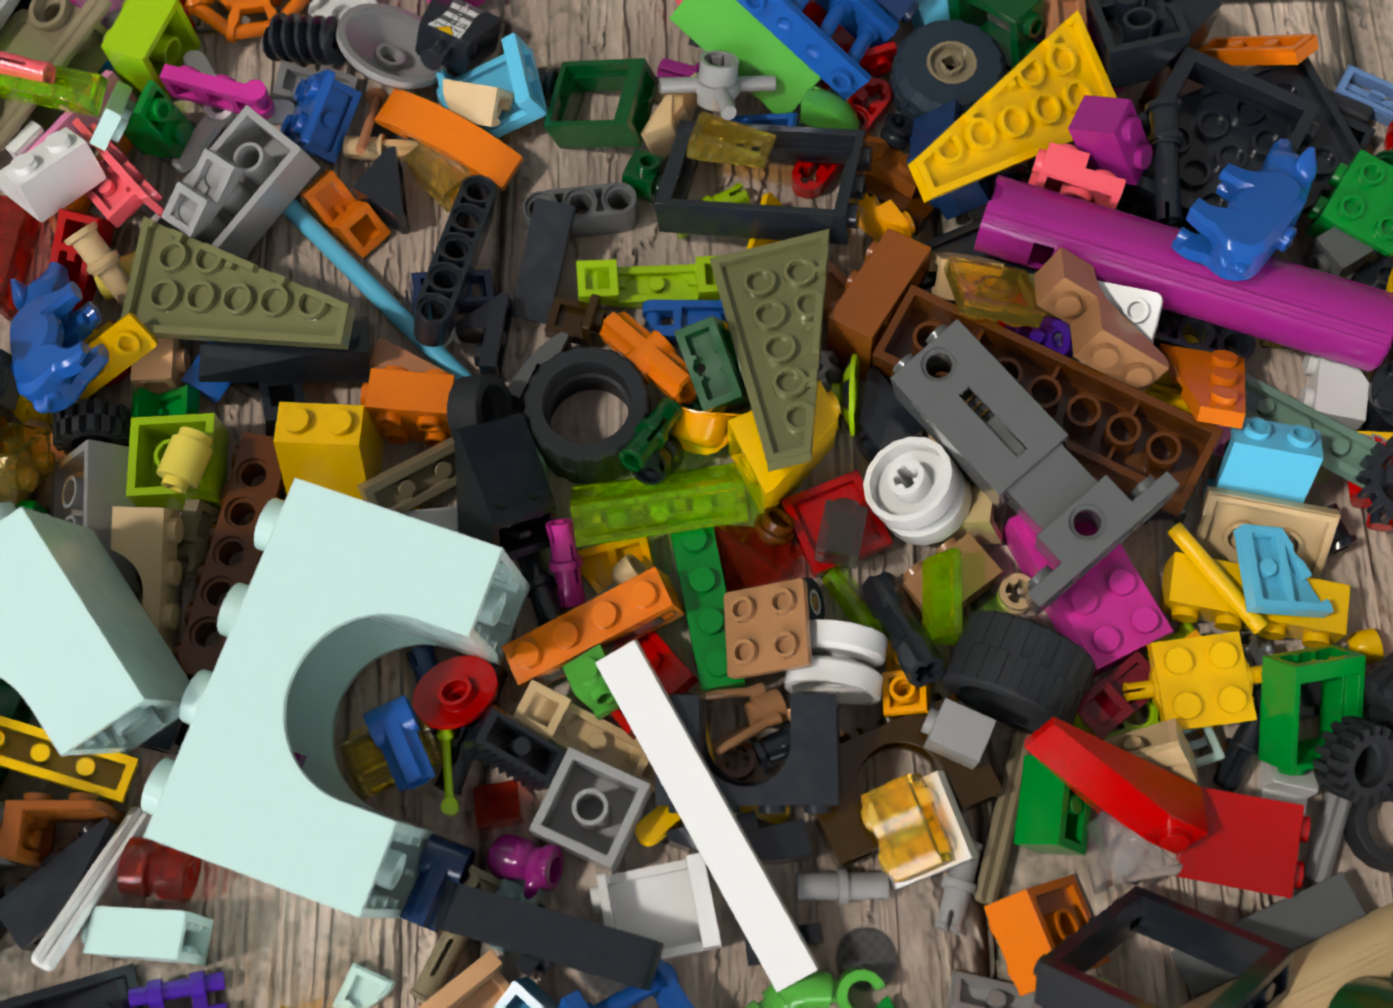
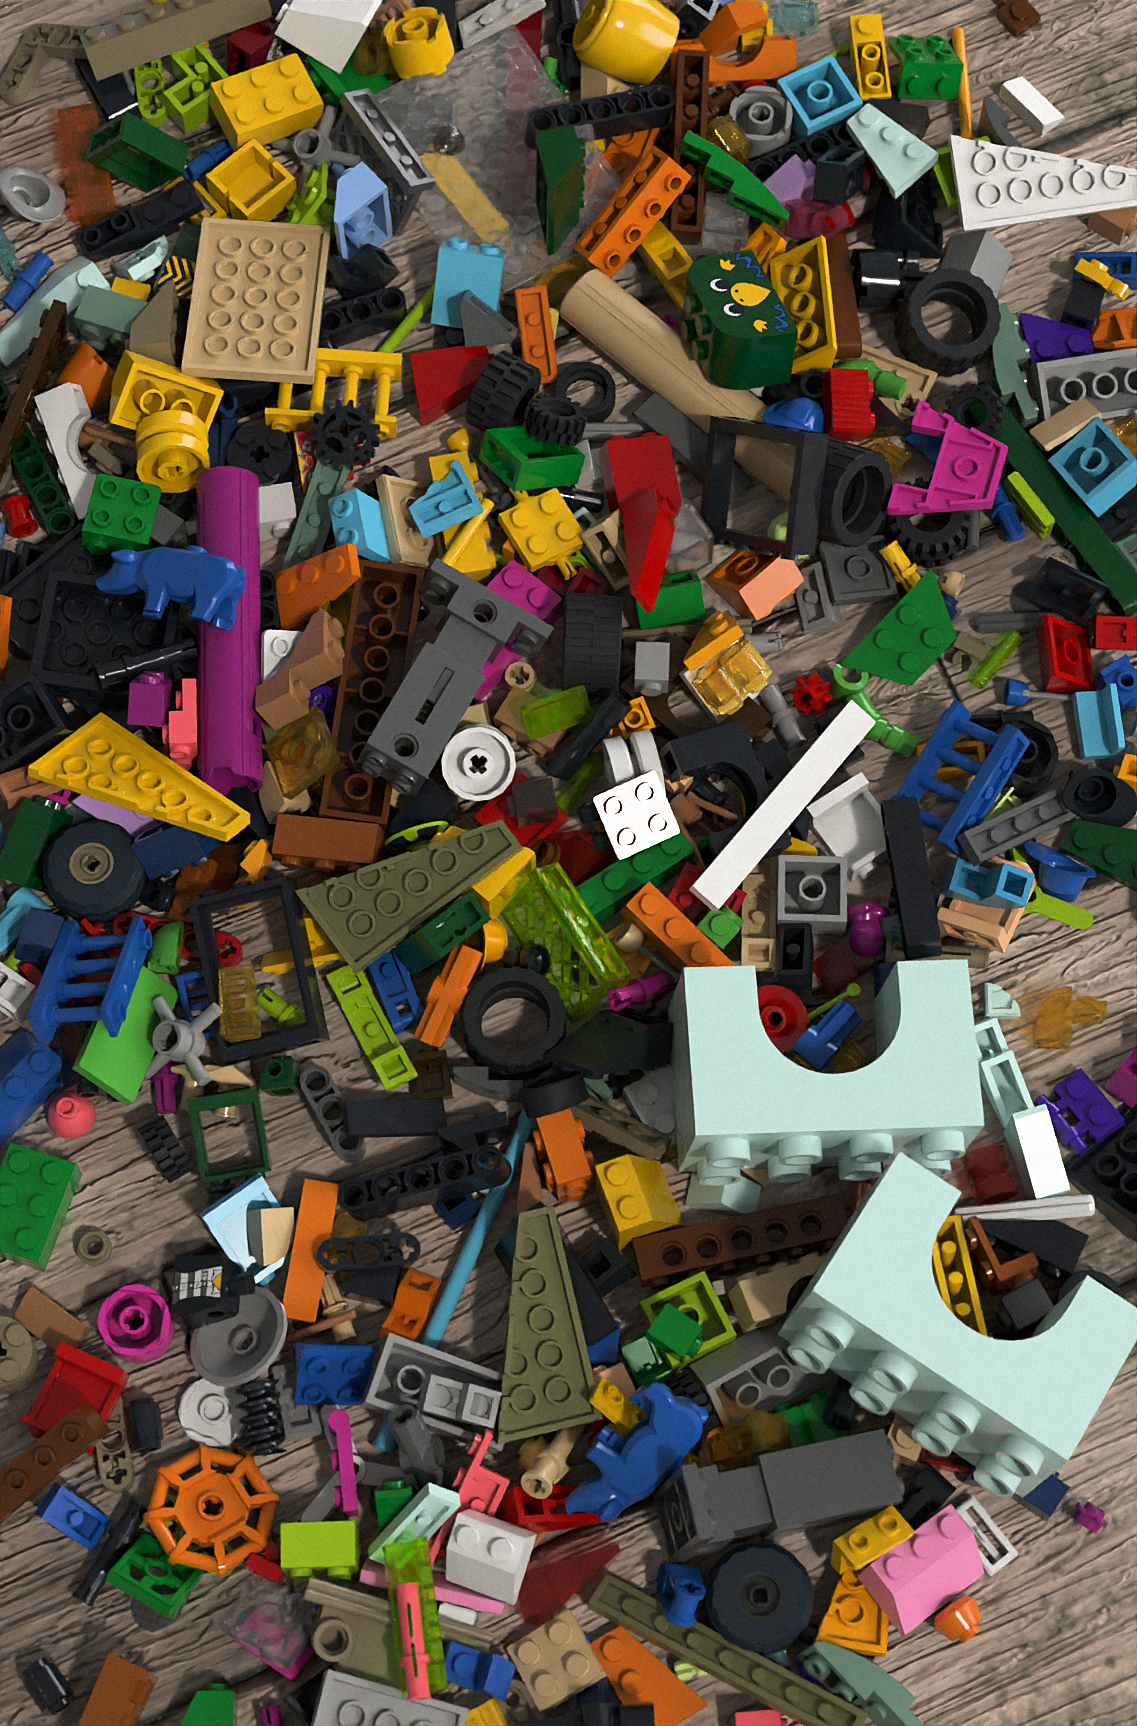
camera: 115 degrees left, 0 degrees up
(148, 423) = (676, 1334): none -> green brick
(181, 149) = (417, 1449): none -> dark grey piece
(185, 460) = (692, 1291): light yellow brick -> none
(279, 942) = (1000, 1071): none -> light aqua slope
(411, 192) = (342, 1265): none -> black beam
(614, 37) = (165, 1149): none -> black tyre
(640, 446) = (520, 956): dark green pin -> none
(857, 933) = (811, 694): none -> red gear
(969, 830) = (715, 636): none -> light orange wing

